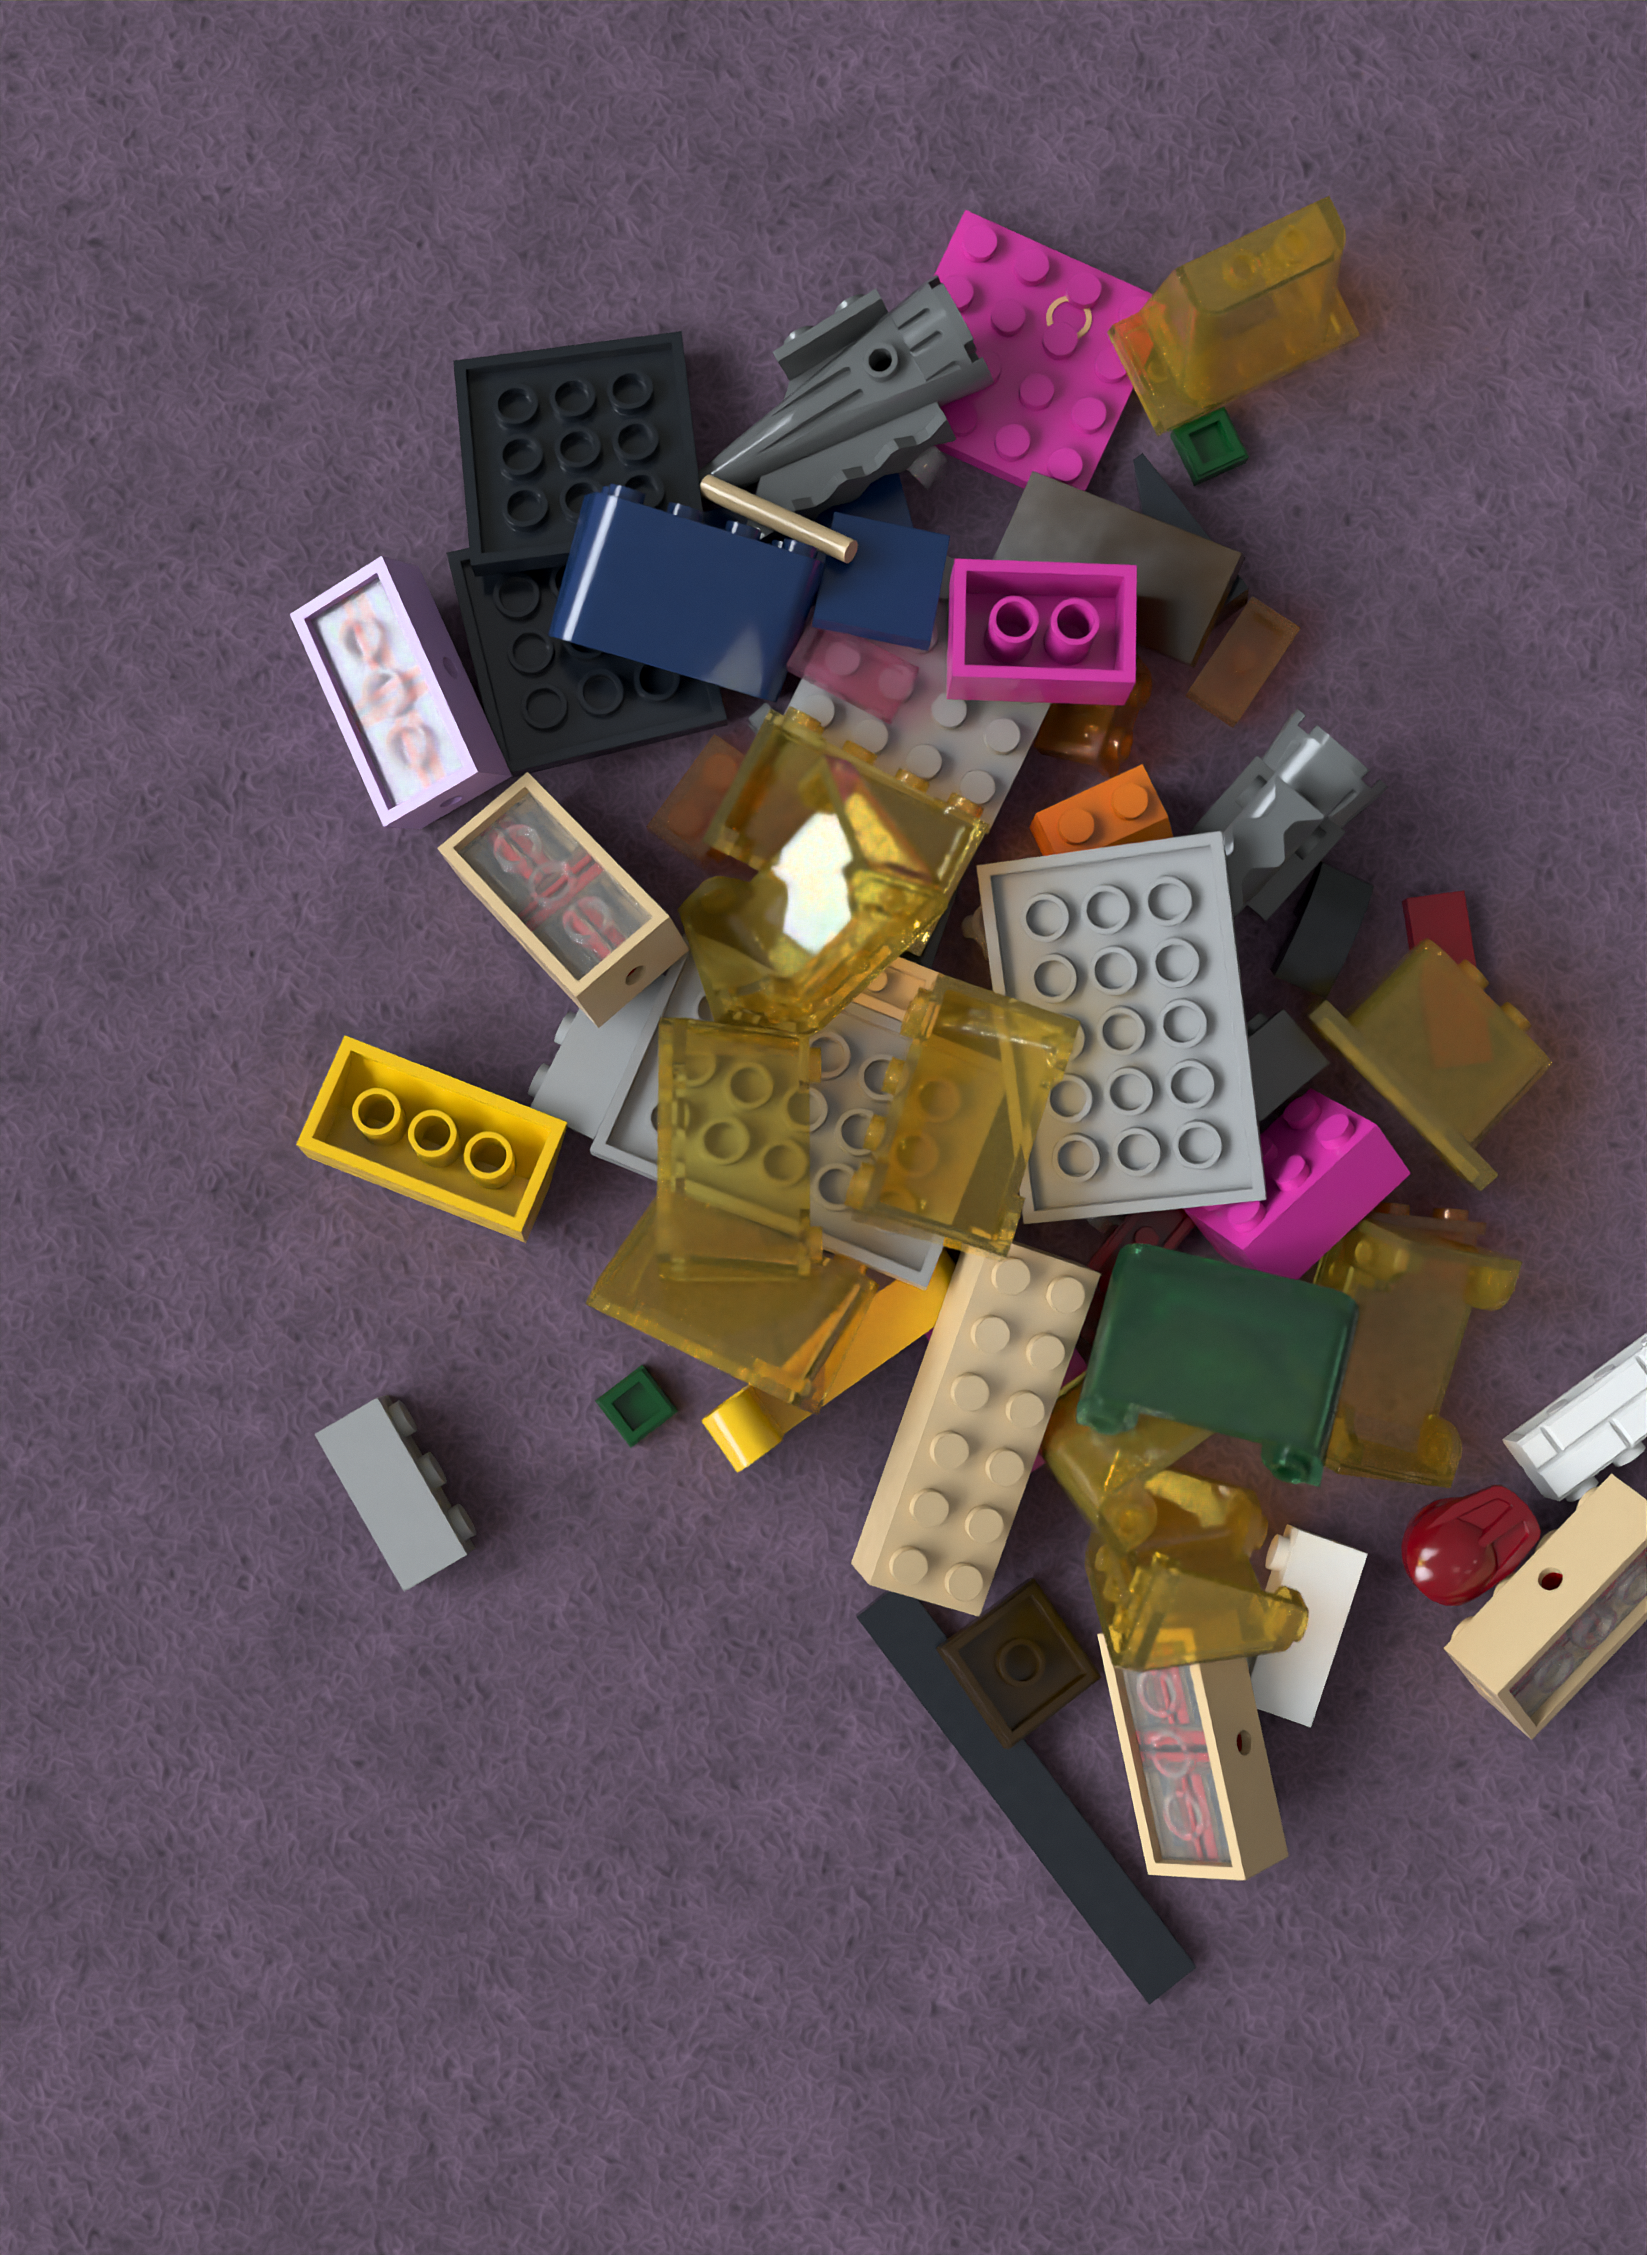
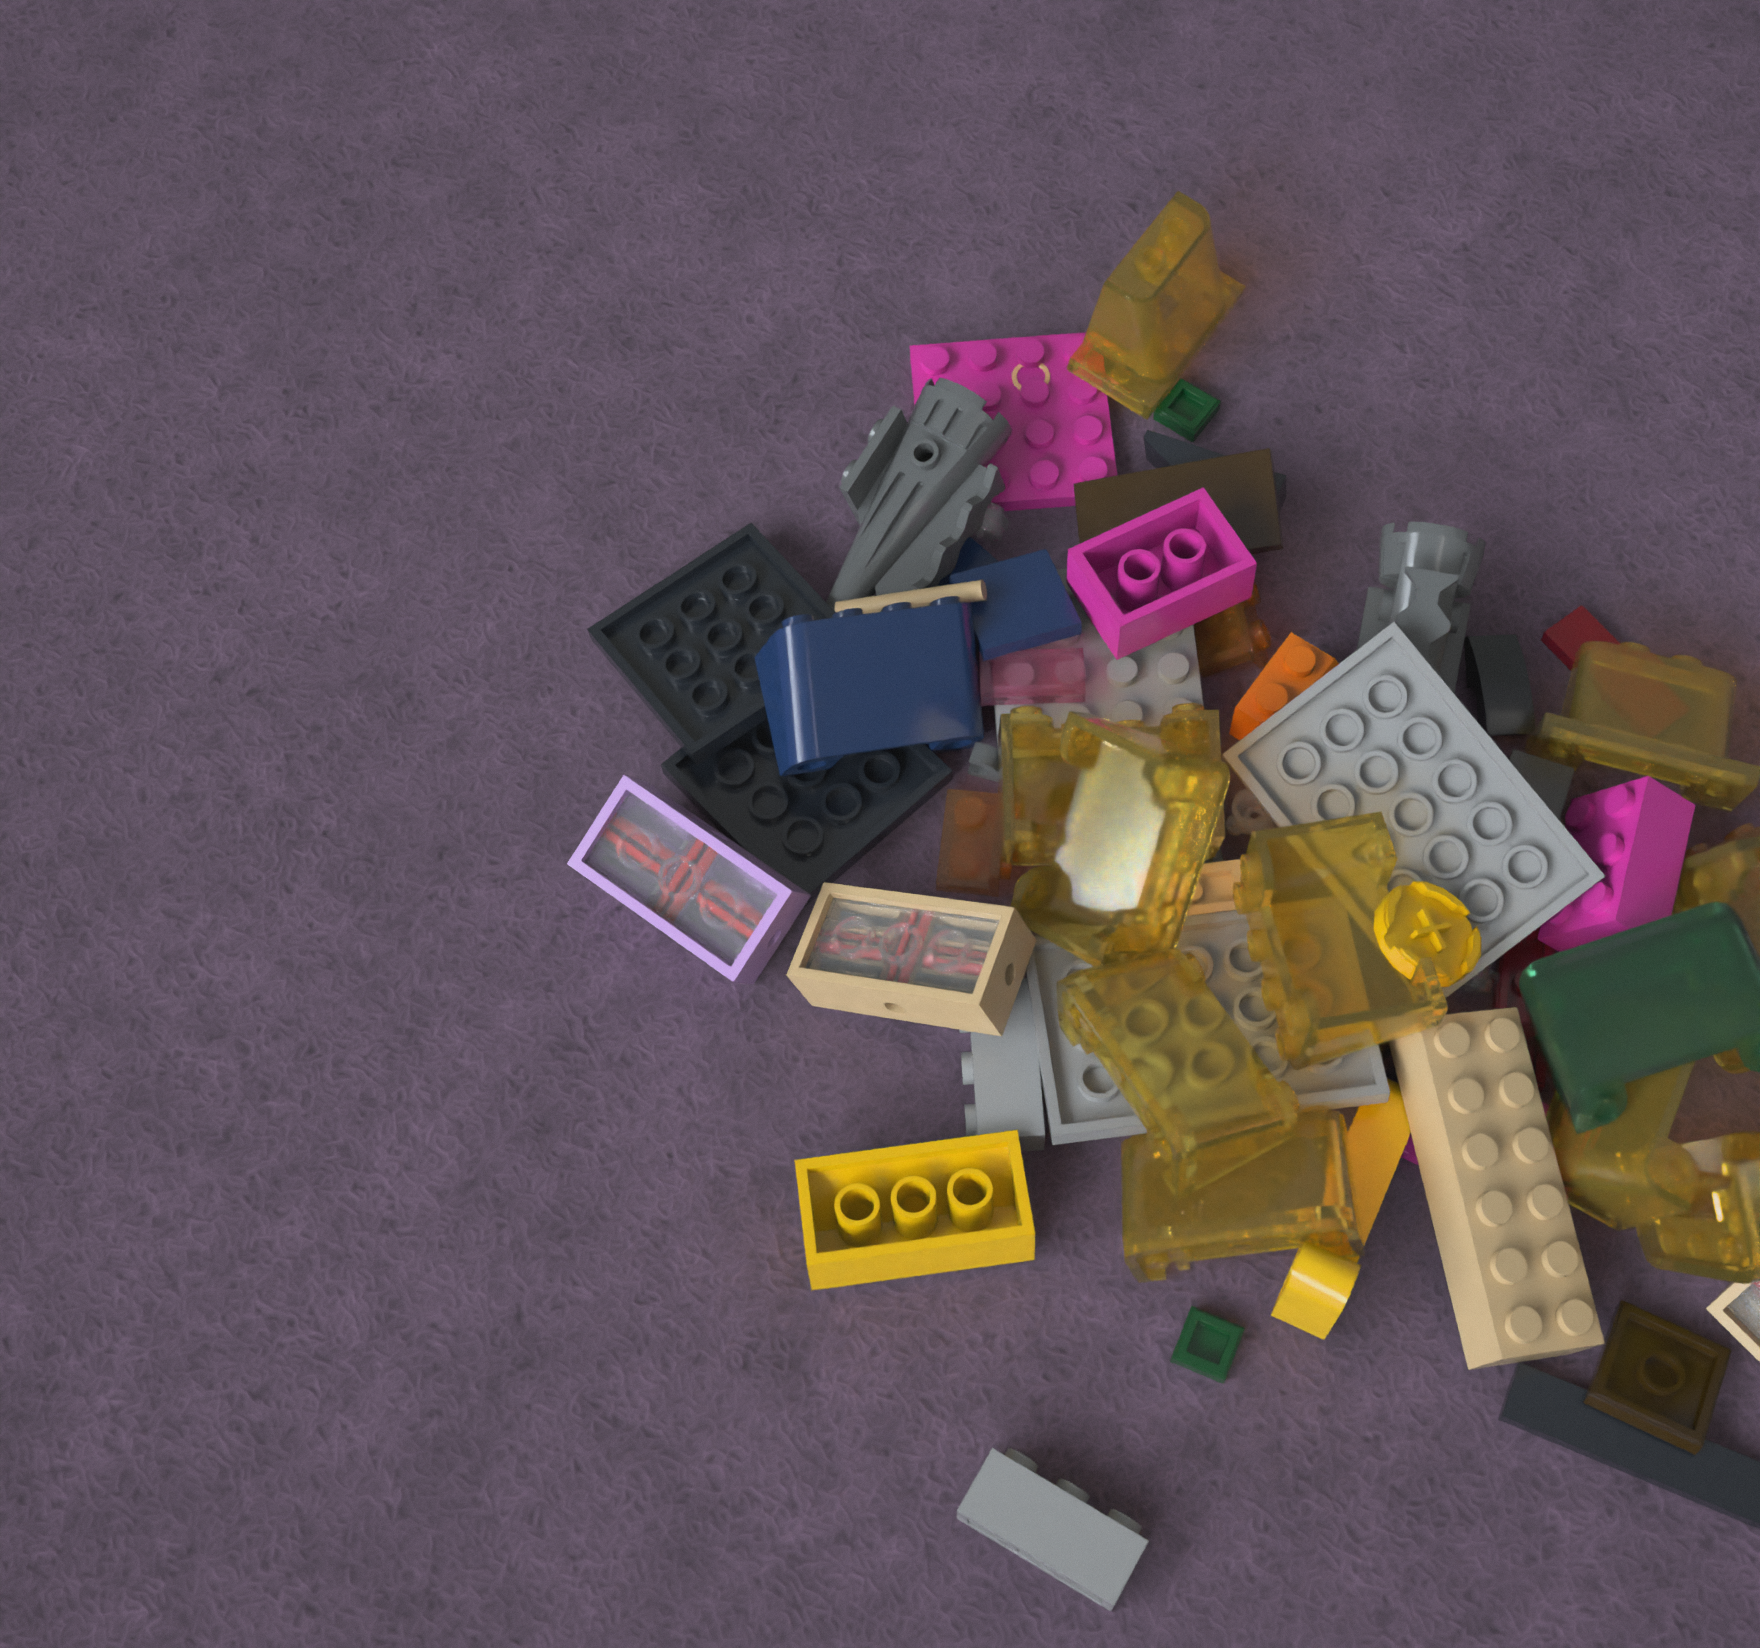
camera: 20 degrees left, 20 degrees down
(1055, 1160) = (1425, 923): none -> yellow tile
(1242, 662) = (1311, 536): clear orange plate -> none

